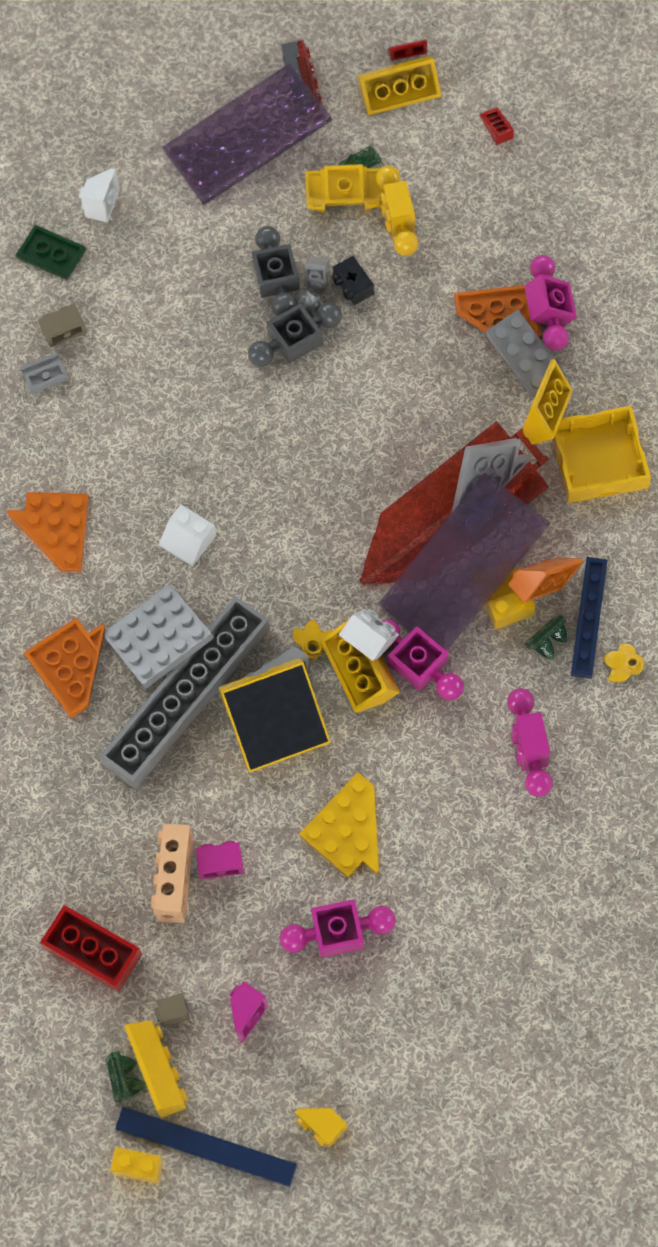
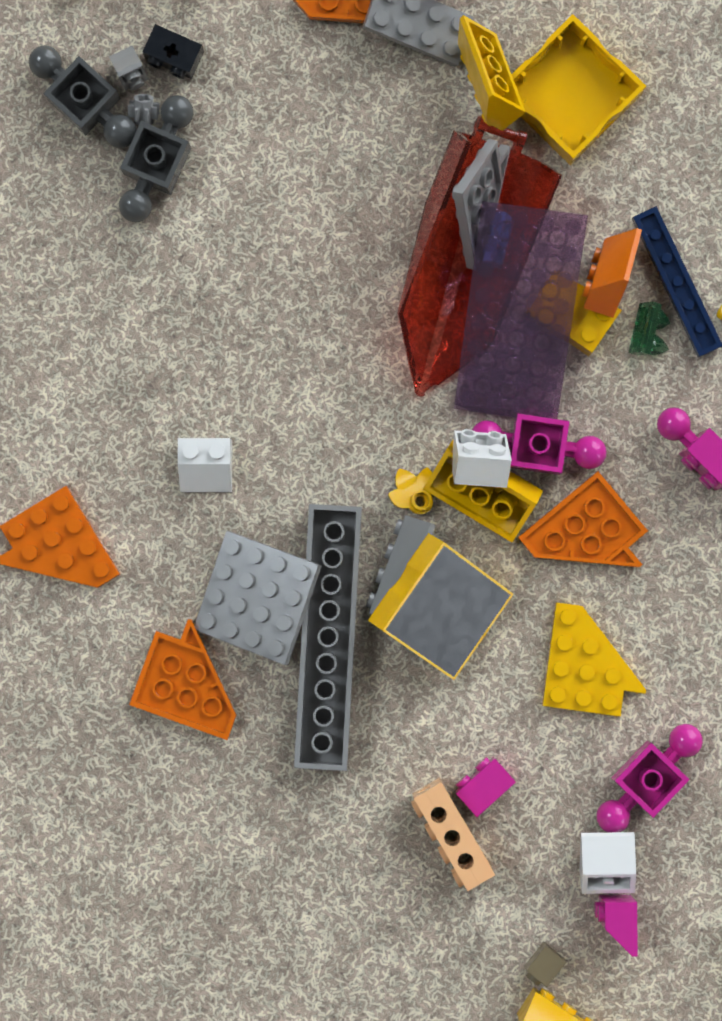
camera: 35 degrees left, 20 degrees up
(91, 948) = (424, 961): red brick -> none
(266, 964) = (607, 863): none -> white slope
(413, 736) = (587, 528): none -> orange wing

